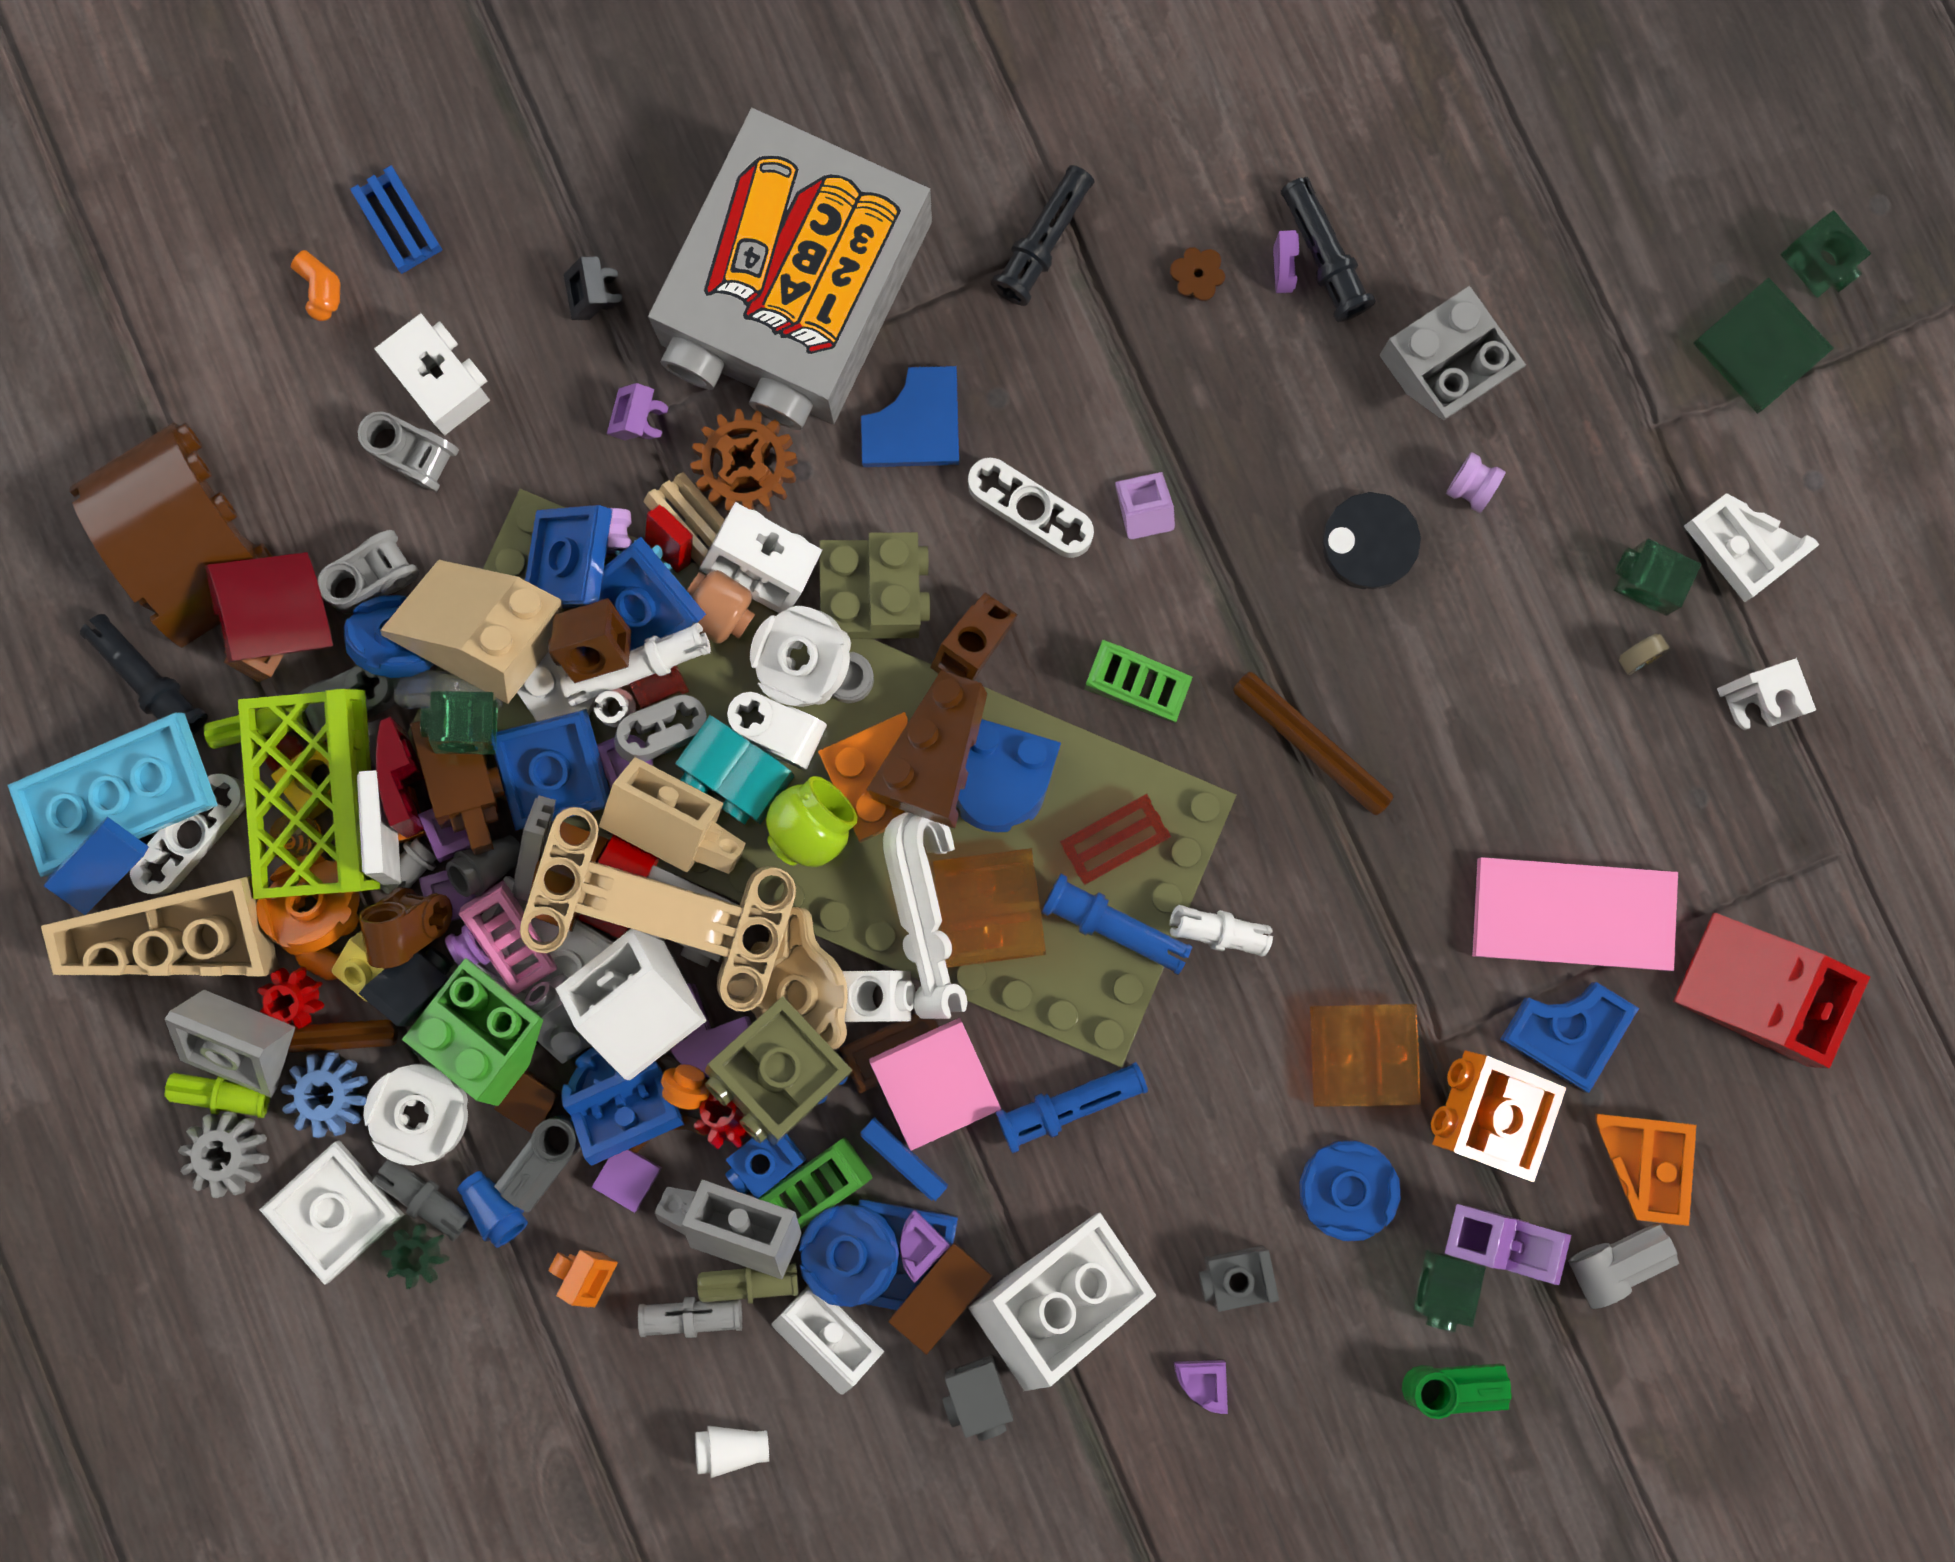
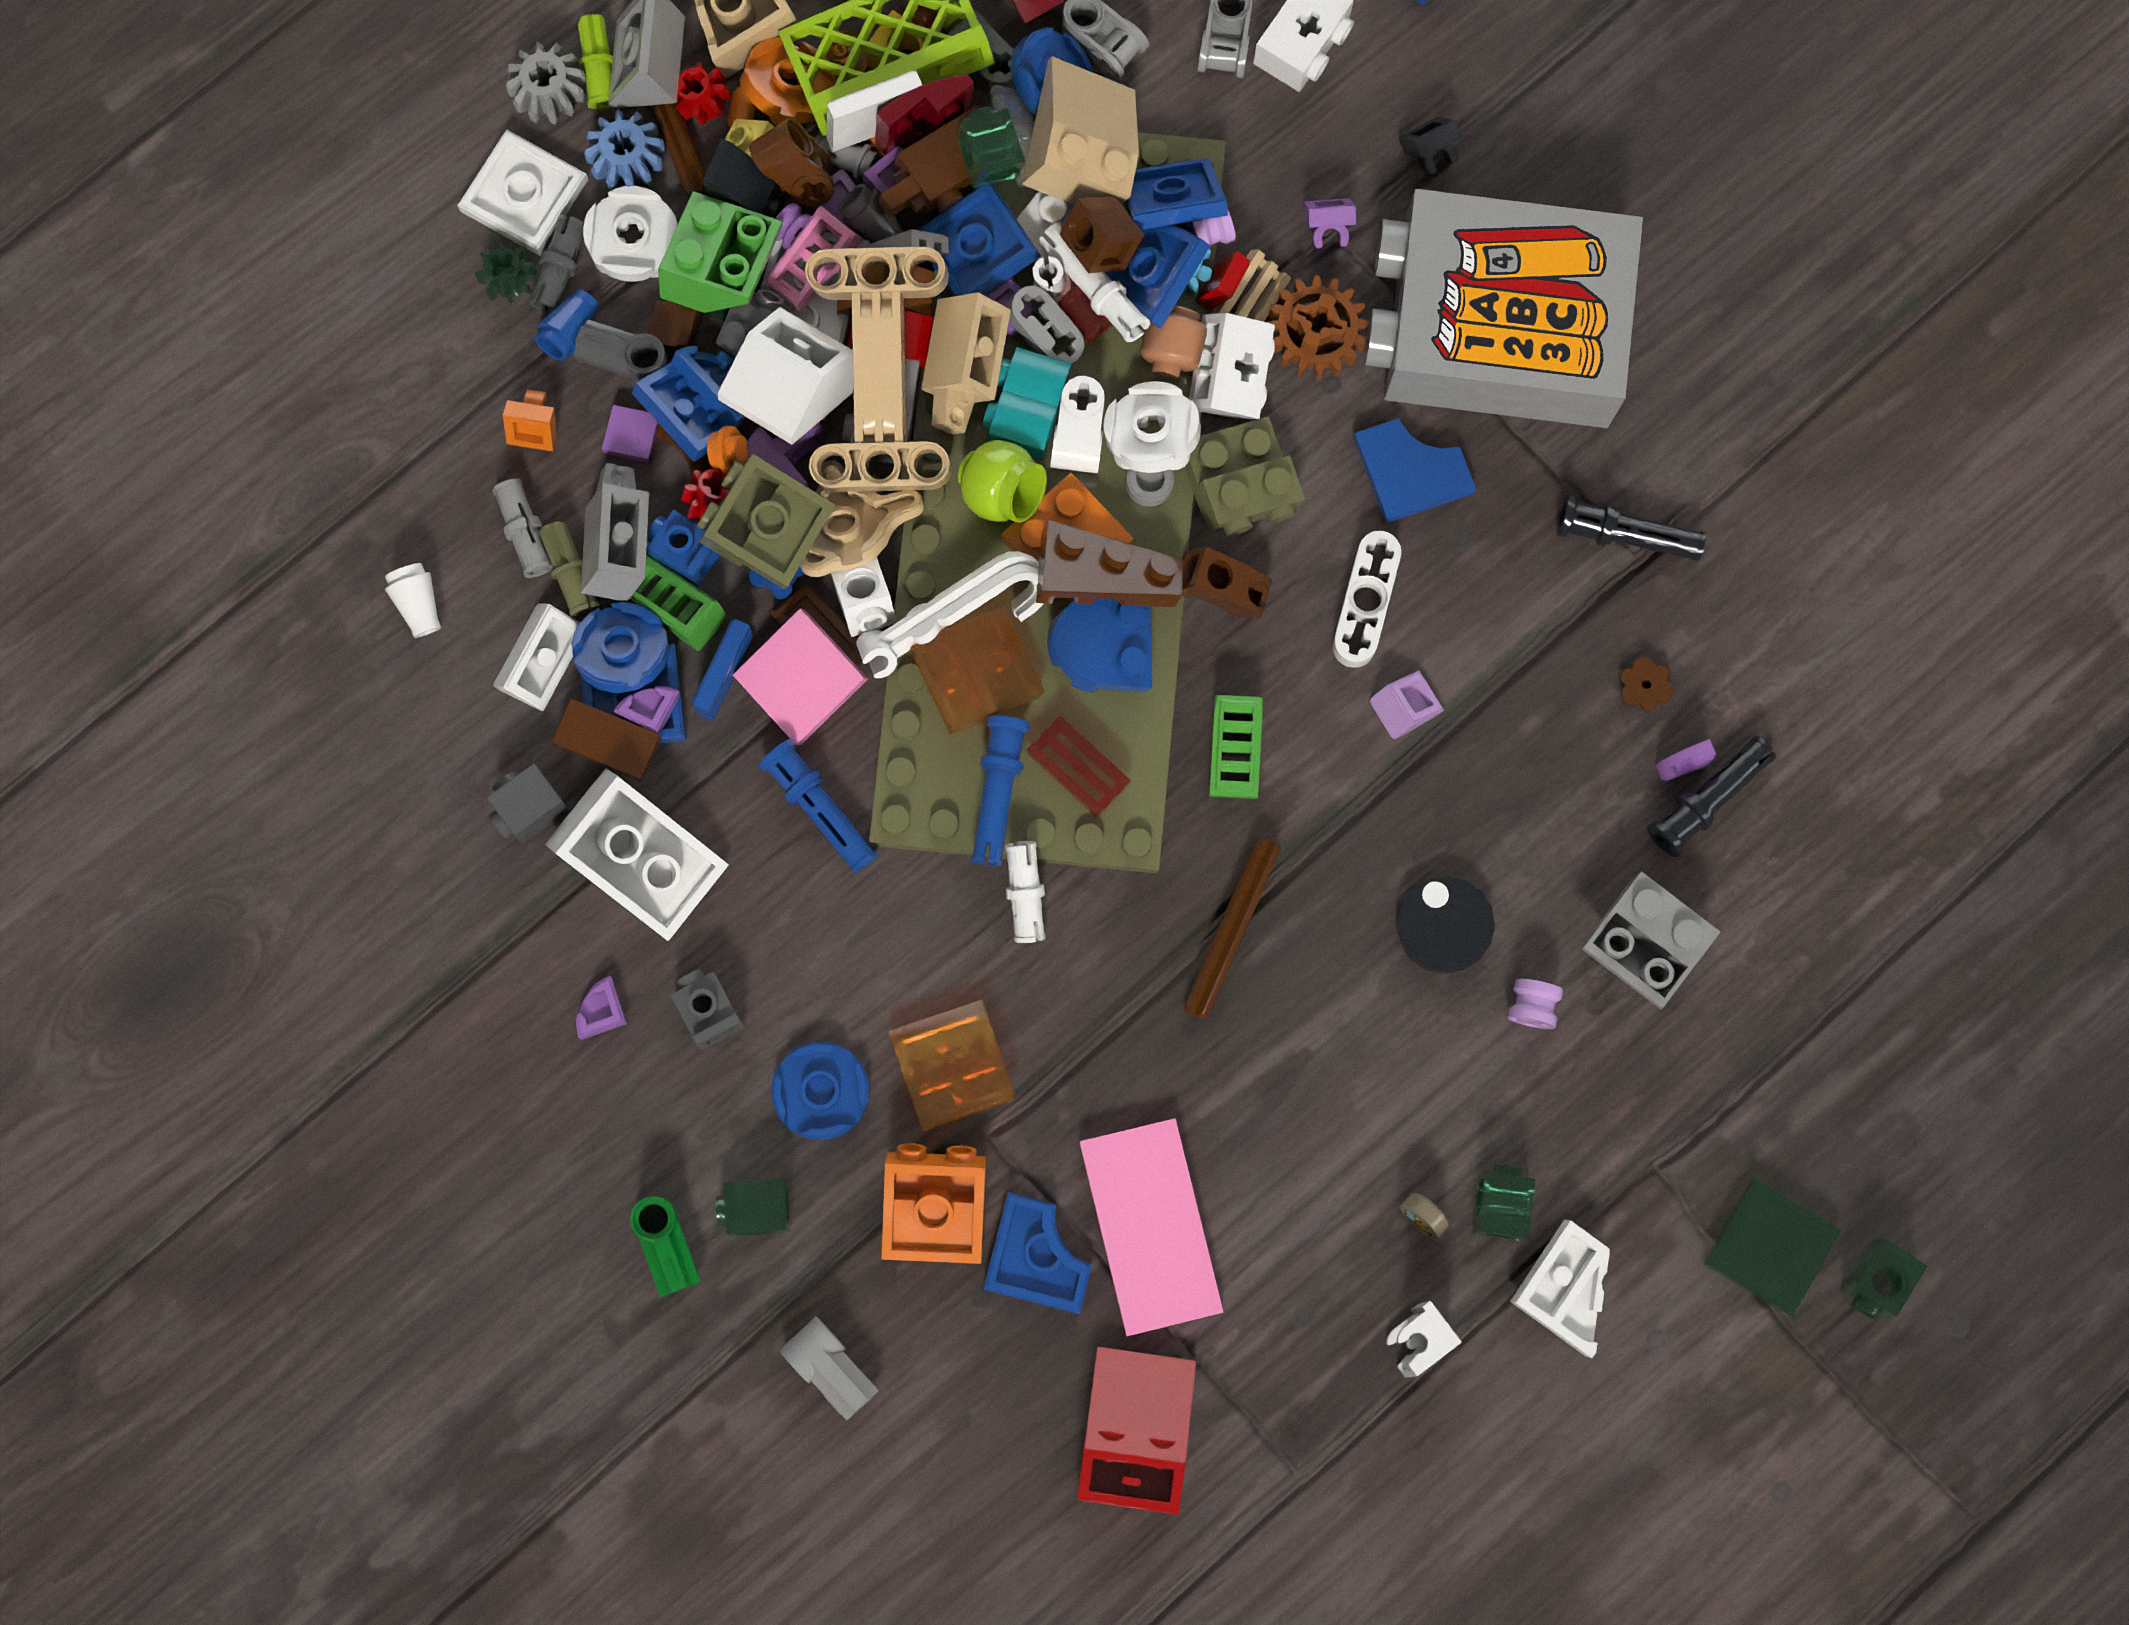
camera: 70 degrees right, 5 degrees down
(1507, 1244) = (814, 1244): medium lavender brick -> none
(1652, 1165) = (933, 1371): orange wing -> none

